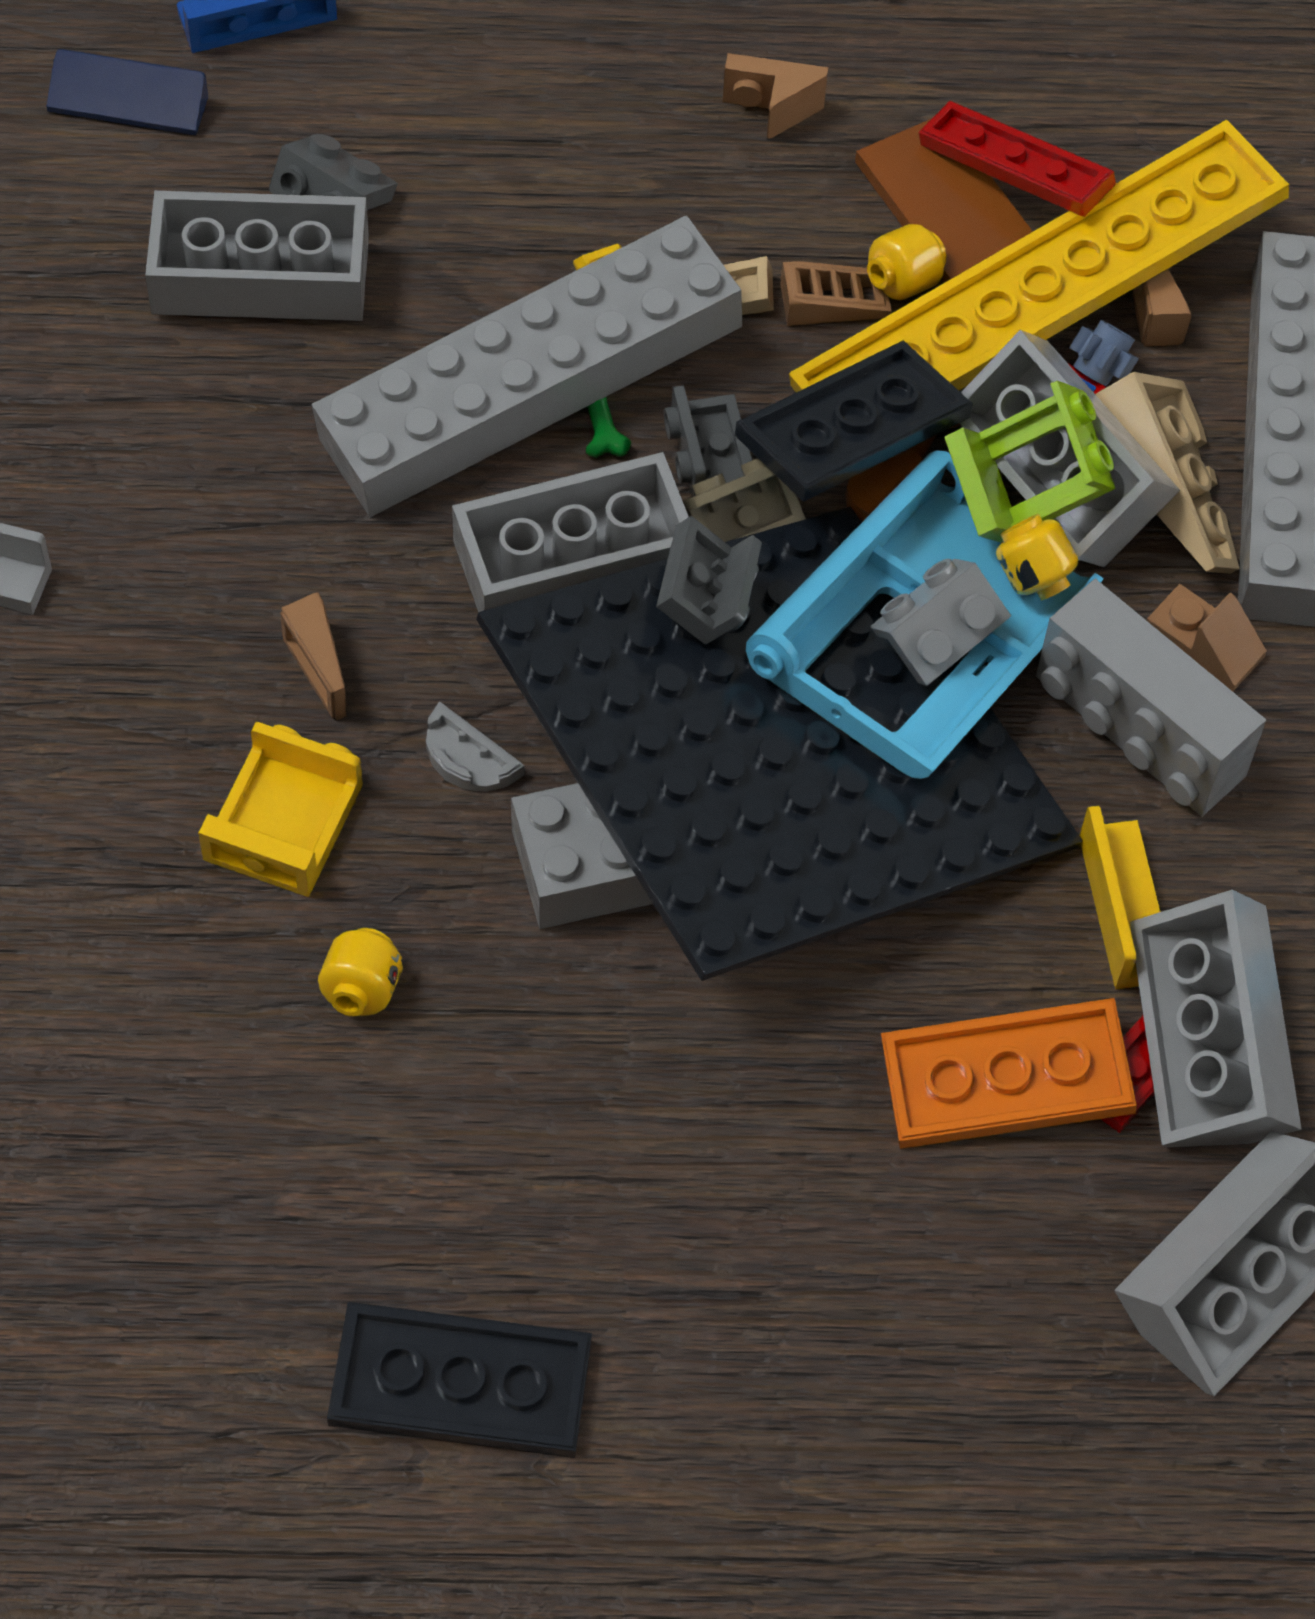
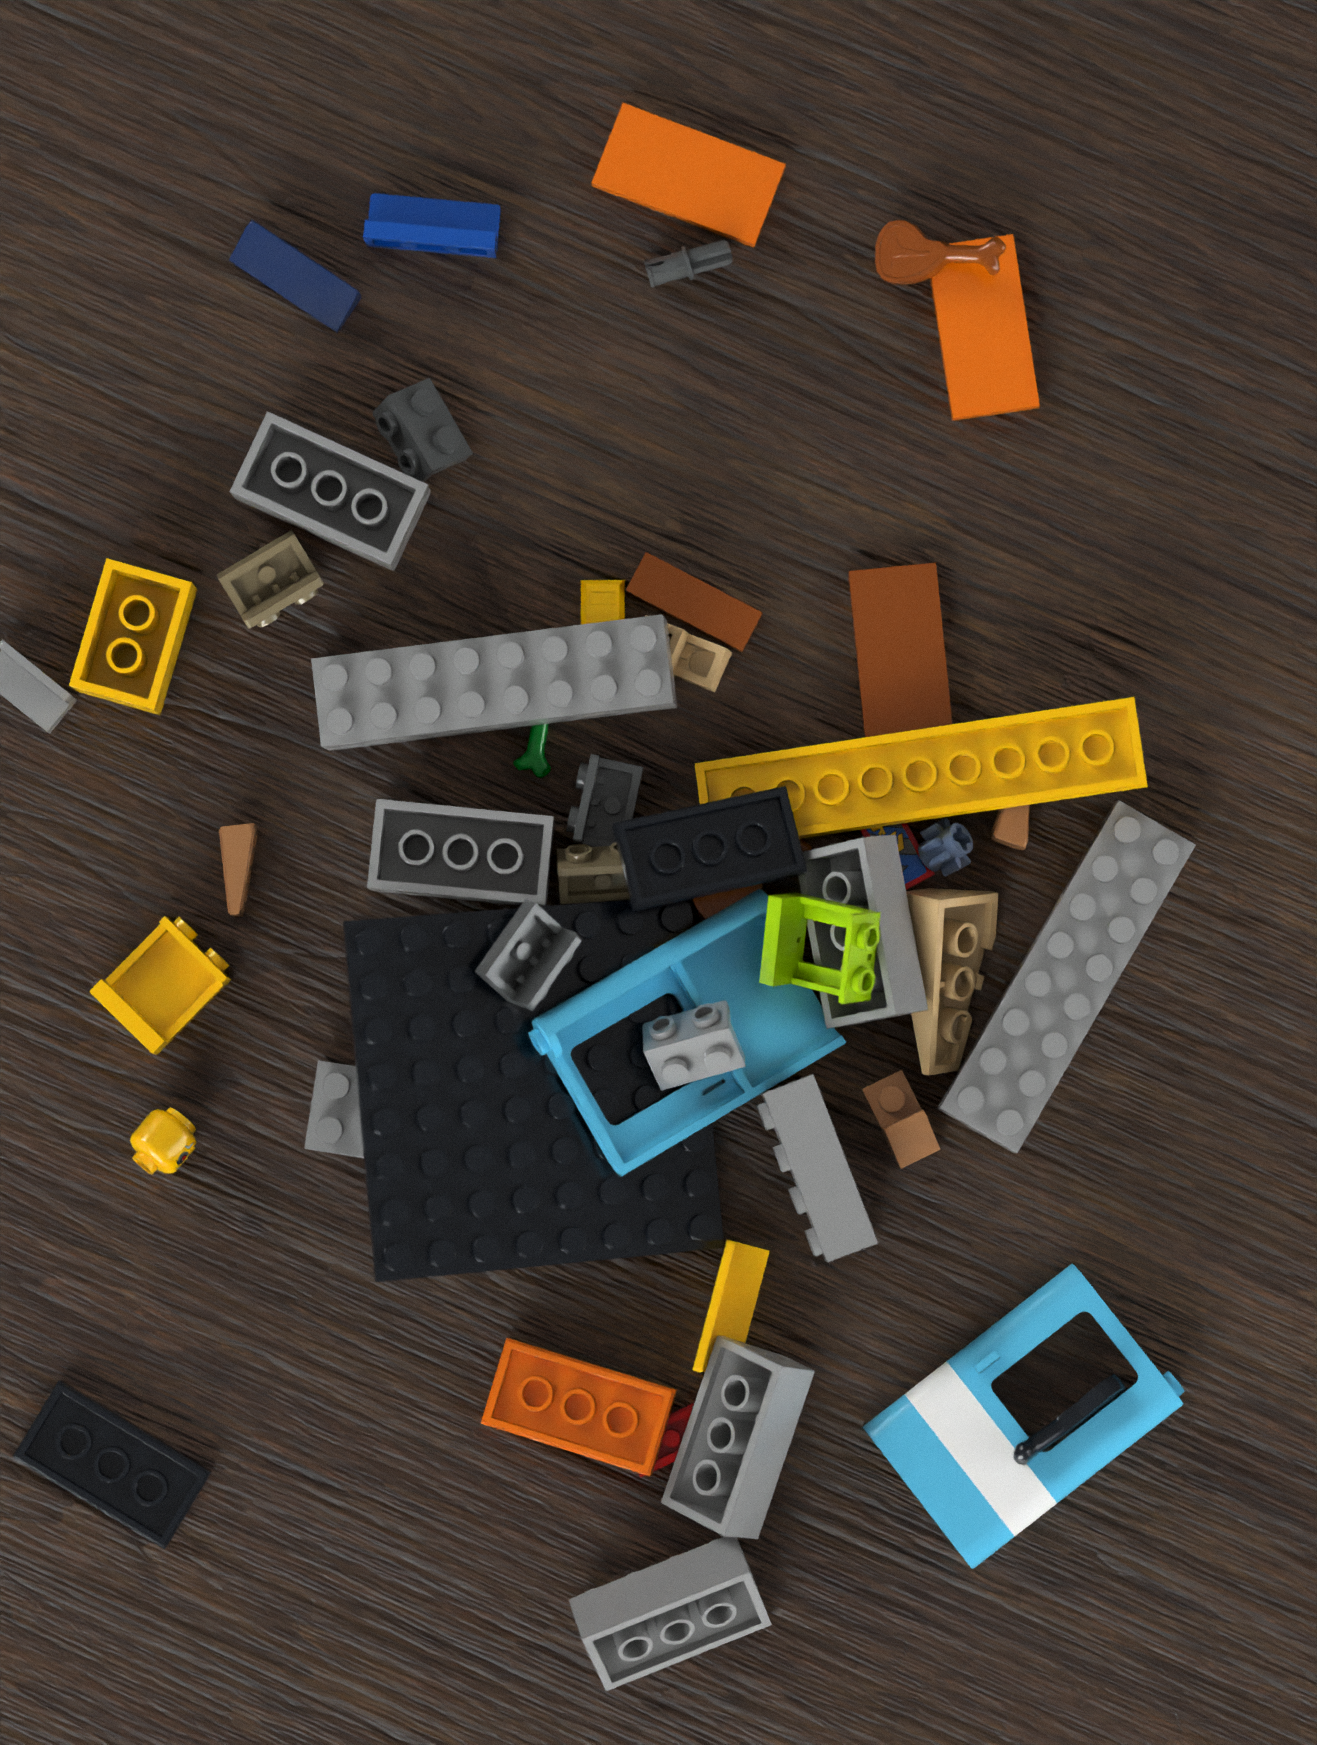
camera: 30 degrees right, 25 degrees up
(93, 464) = (133, 636): none -> yellow brick
(224, 365) = (271, 580): none -> dark tan bracket
(467, 755) = (313, 989): light grey tile -> none
(729, 235) = (693, 602): none -> dark orange tile
(783, 87) = (821, 492): medium nougat slope -> none
(817, 308) = (758, 677): medium nougat slope -> none
(907, 260) = (832, 700): yellow head -> none
(1017, 158) = (960, 648): red tile -> none
(1037, 557) = (793, 1018): yellow head -> none

